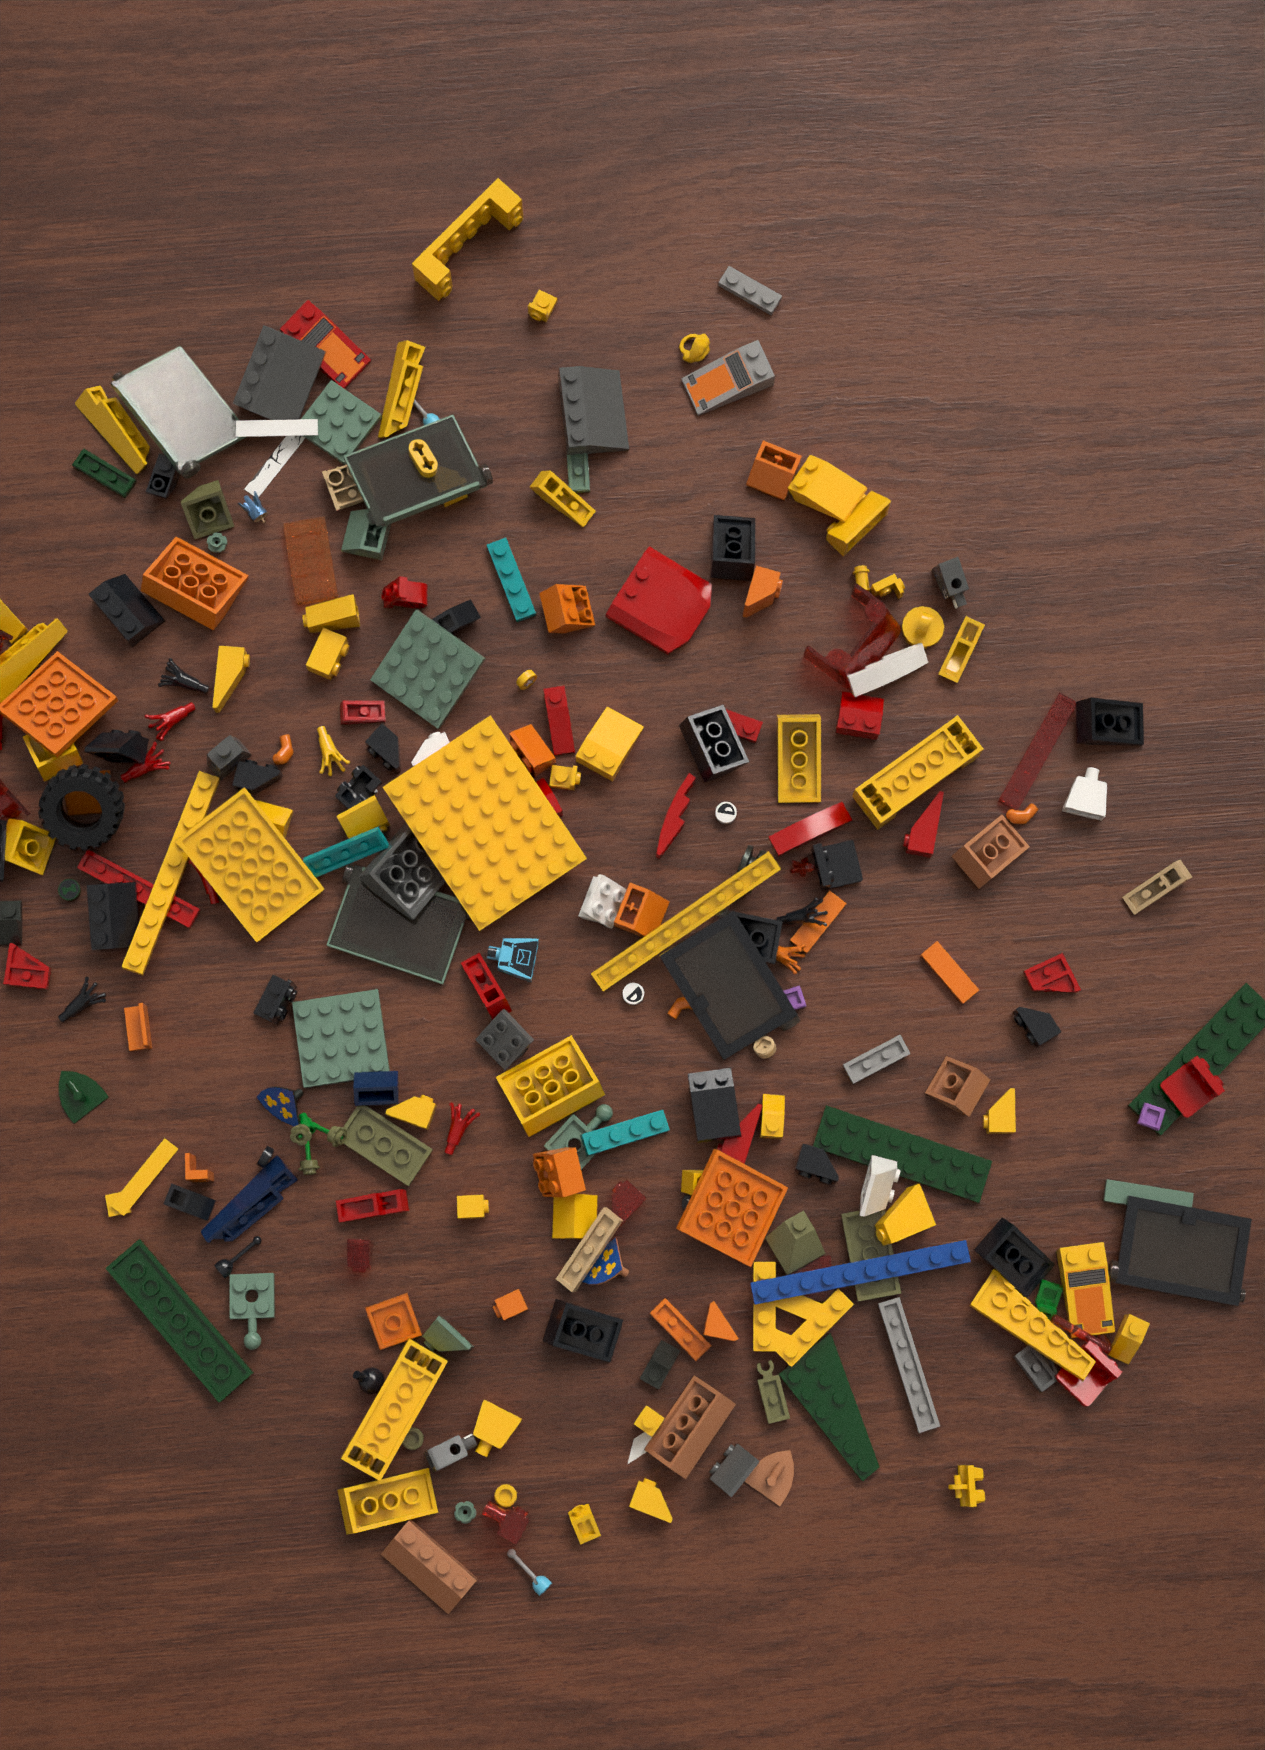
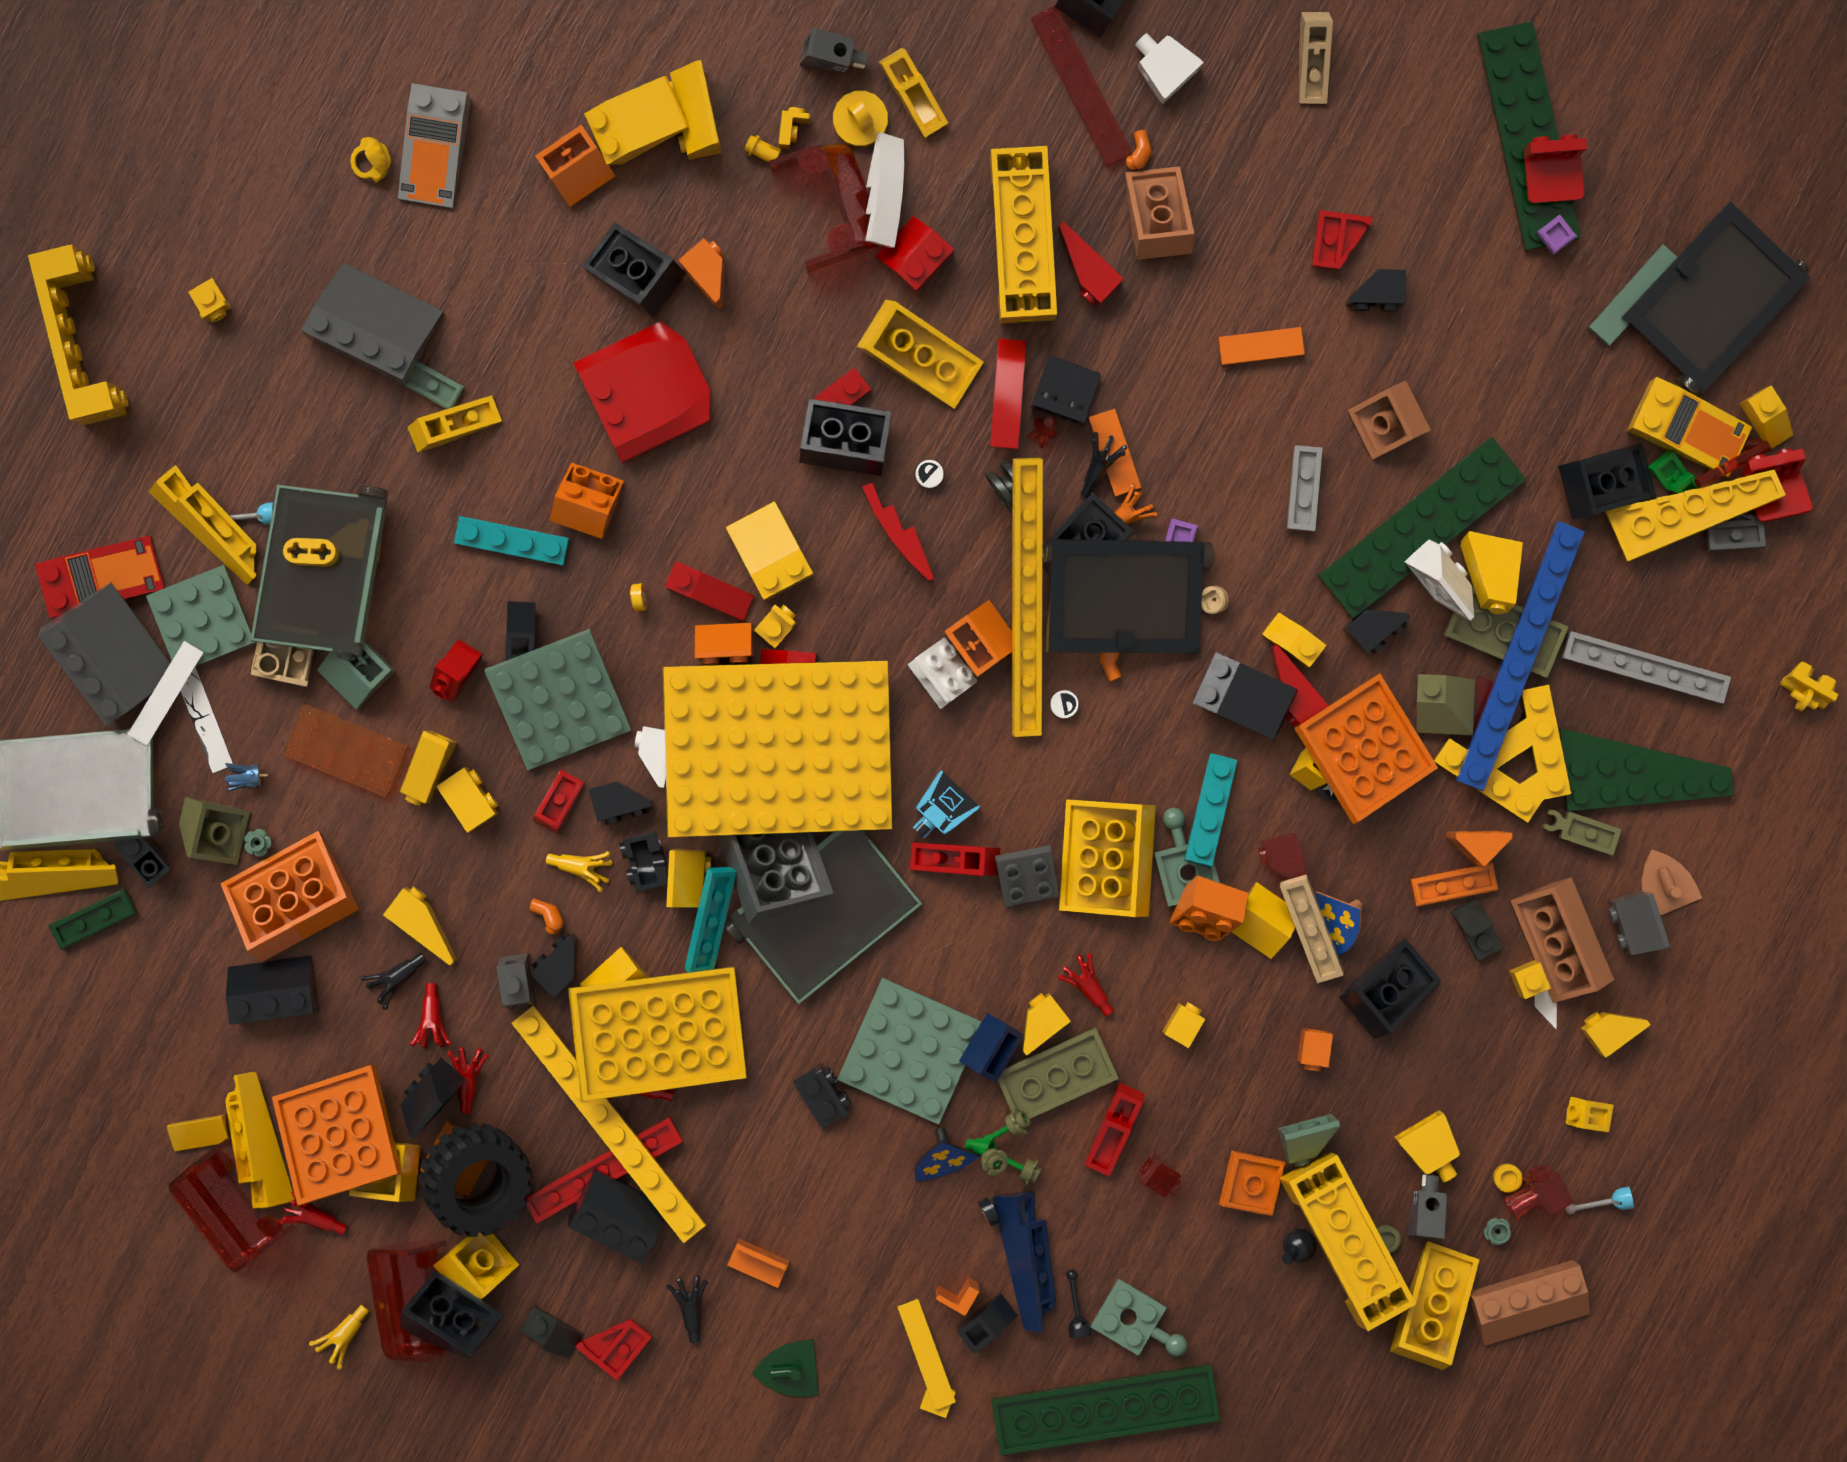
camera: 50 degrees left, 10 degrees up
(69, 889) = (555, 1245): tile -> none
(750, 290) = (342, 52): light grey plate -> none
(1001, 1116) = (1450, 393): yellow slope -> none

